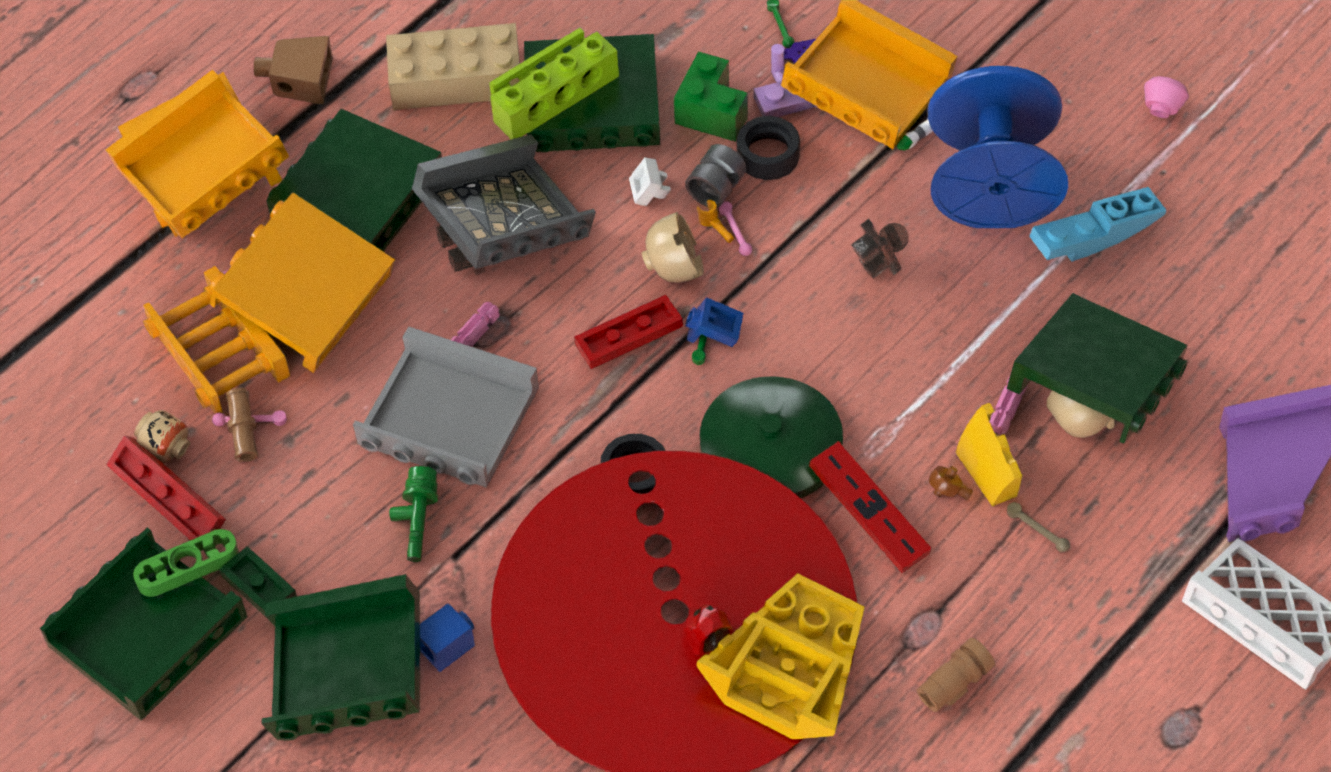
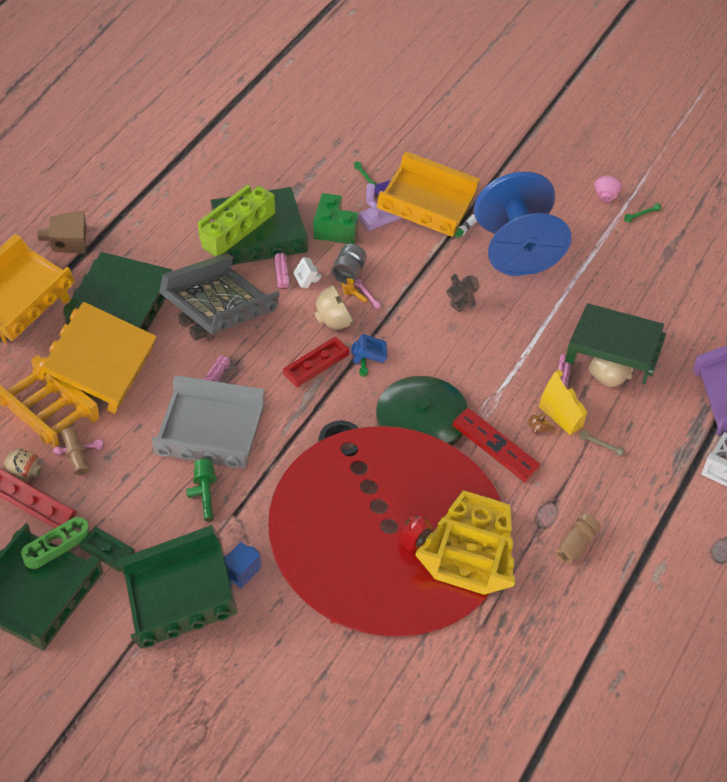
camera: 15 degrees left, 5 degrees down
(449, 64) = (165, 219): tan brick -> none
(611, 172) = (281, 271): none -> bright pink axle
(766, 128) = (378, 233): black tyre -> none
(1101, 227) = (591, 265): medium azure slope -> none
(1188, 150) = (628, 217): none -> green hinge

